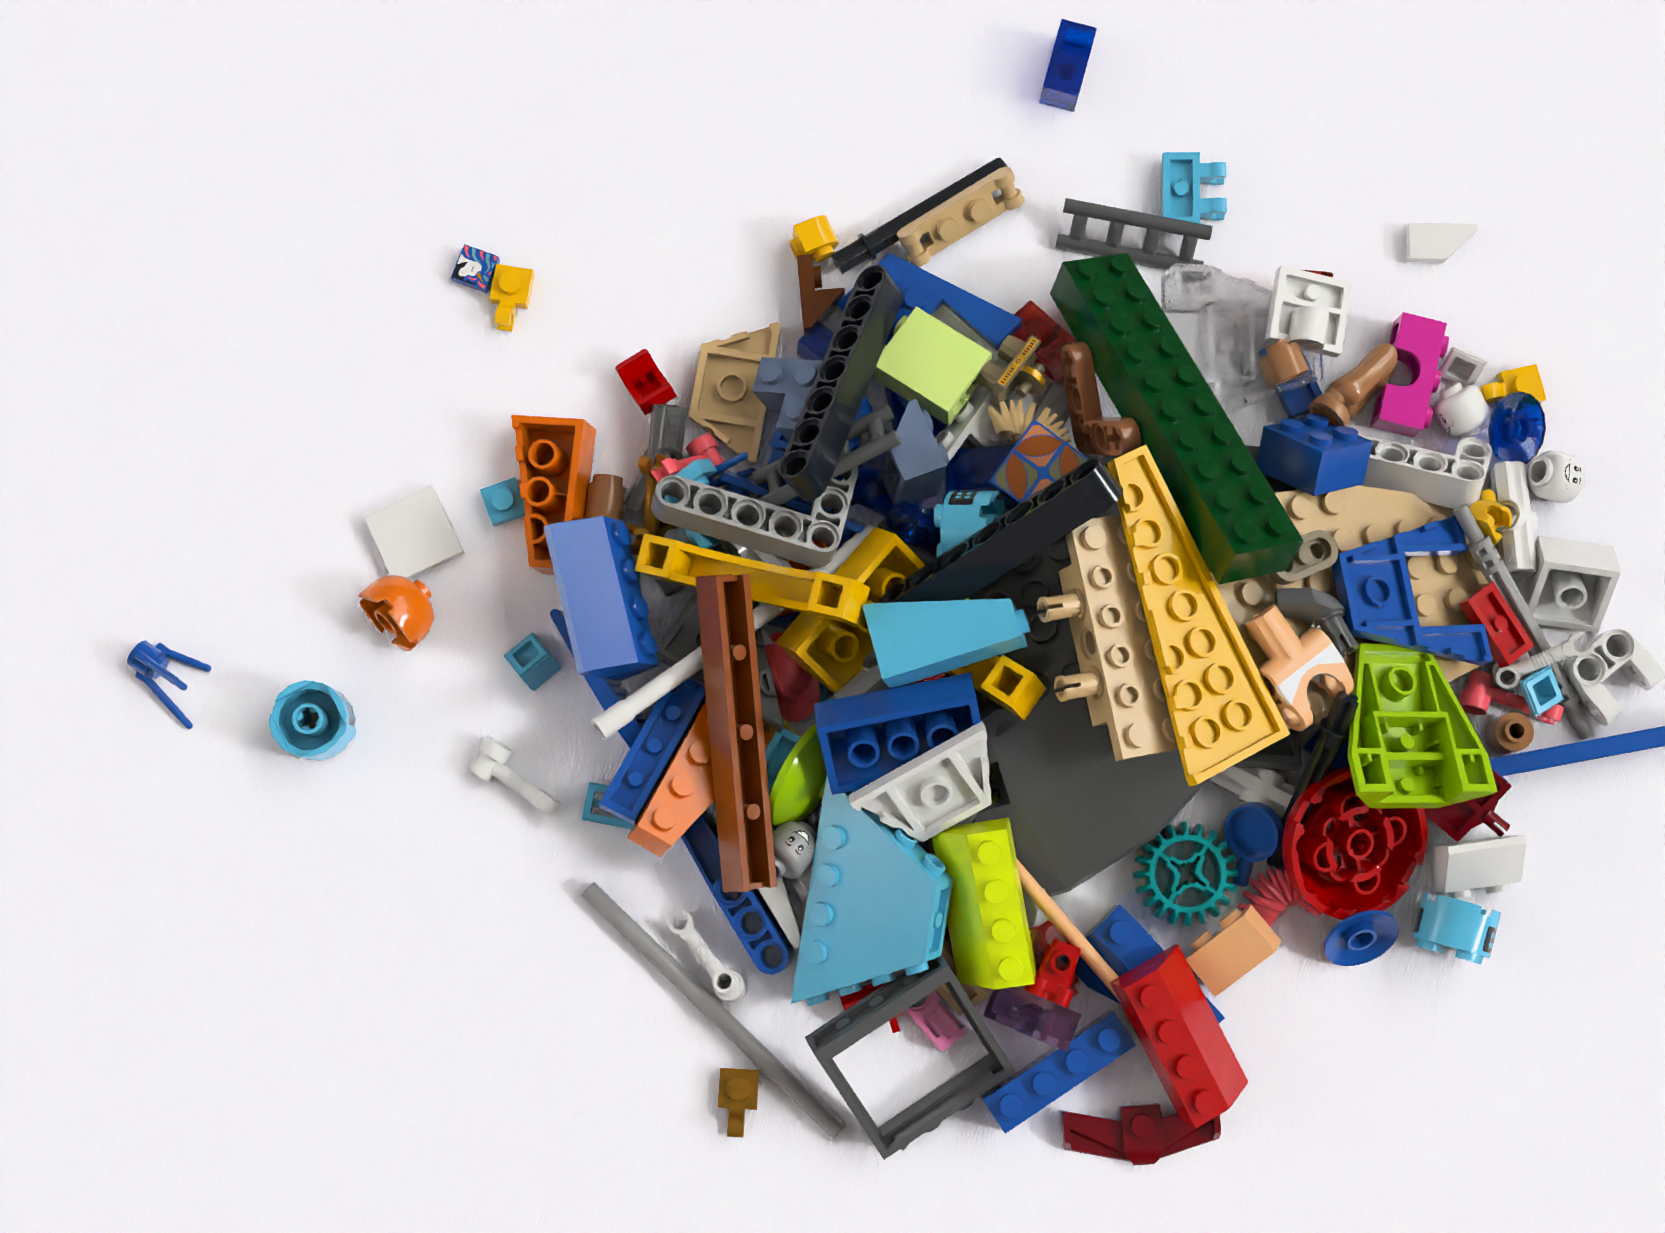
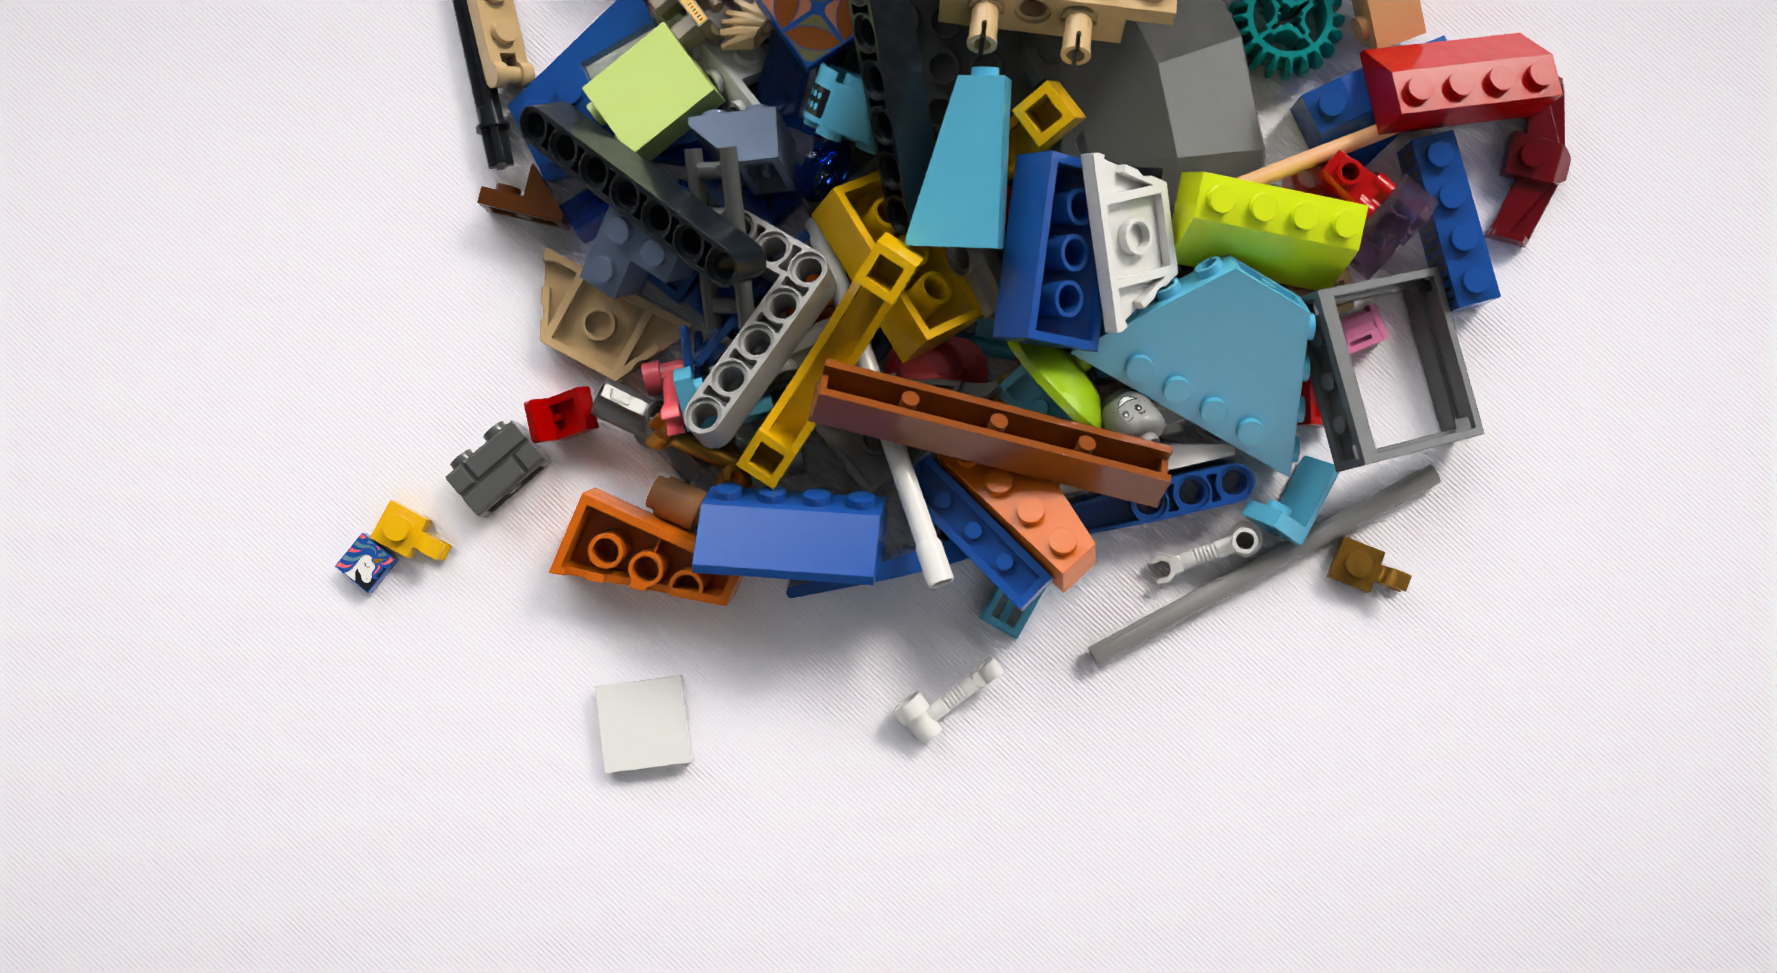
camera: 65 degrees left, 5 degrees up
(292, 714) = (798, 917): medium azure brick -> none
(399, 608) = (722, 763): orange cylinder -> none
(503, 501) = (640, 613): medium azure plate -> none
(532, 661) = (826, 638): medium azure slope -> none
(585, 345) = (497, 468): none -> dark grey brick
(771, 1021) = (1300, 503): none -> medium azure bracket
(815, 238) = (463, 180): yellow plate -> none

